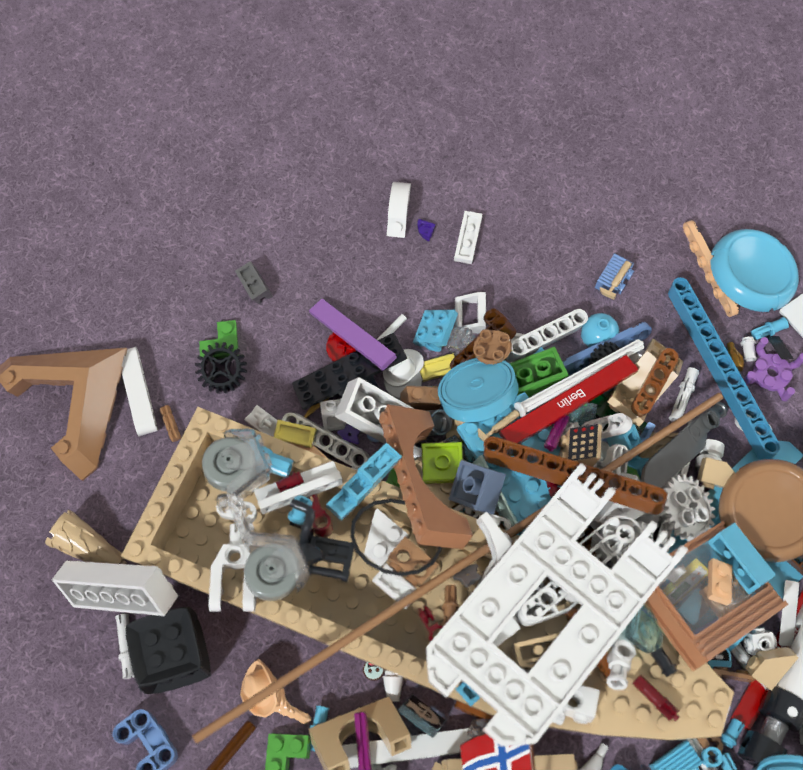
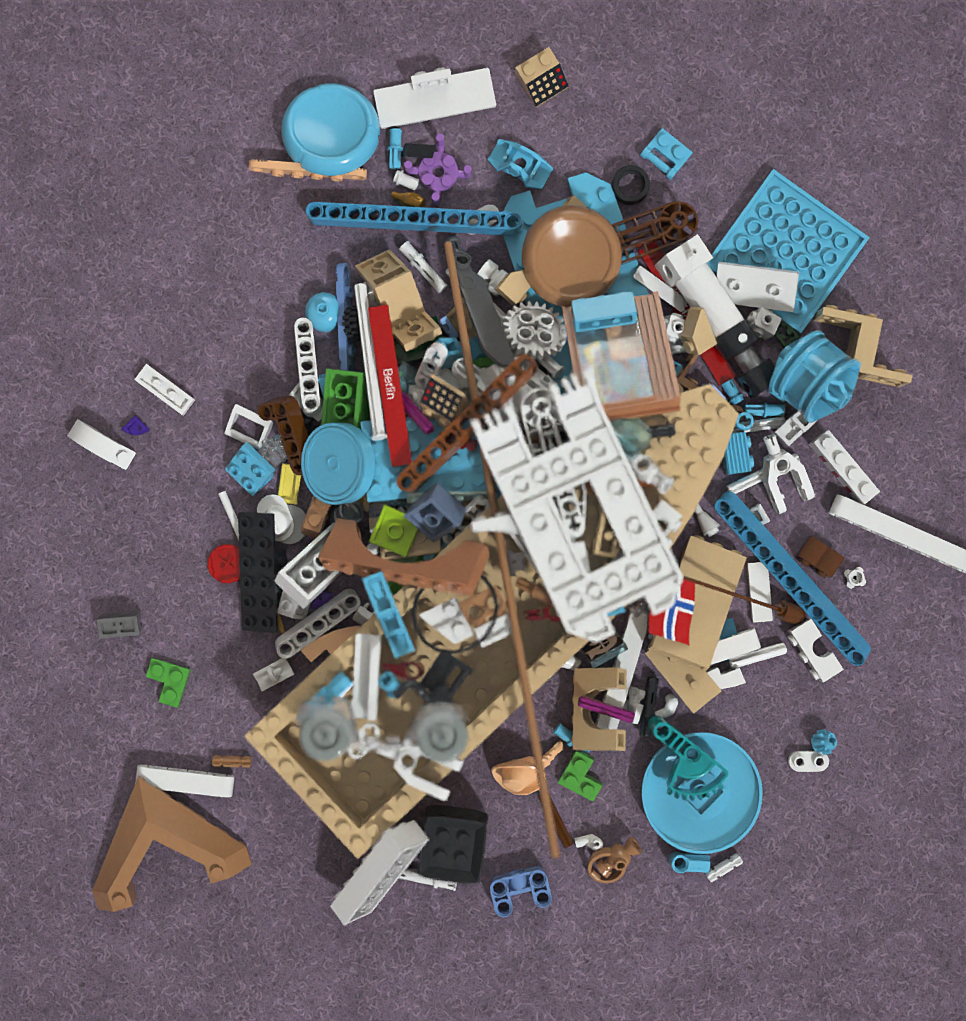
camera: 70 degrees left, 20 degrees up
(81, 541) = (311, 887): tan cone -> none
(227, 361) = (190, 696): black gear -> none
(290, 481) = (360, 682): dark red pin -> none
(295, 433) = (300, 651): light yellow tile -> none
(353, 334) = (222, 553): medium lavender tile -> none
(492, 346) = (302, 429): medium nougat dish -> none
(499, 426) = (386, 464): tan piece -> none
(611, 271) = (273, 267): medium blue brick -> none
(616, 281) = (282, 270): tan piece -> none
(655, 382) = (406, 299): dark orange beam -> none
(660, 702) = (687, 453): dark red piece -> none
(719, 582) = (616, 344): light nougat plate -> none

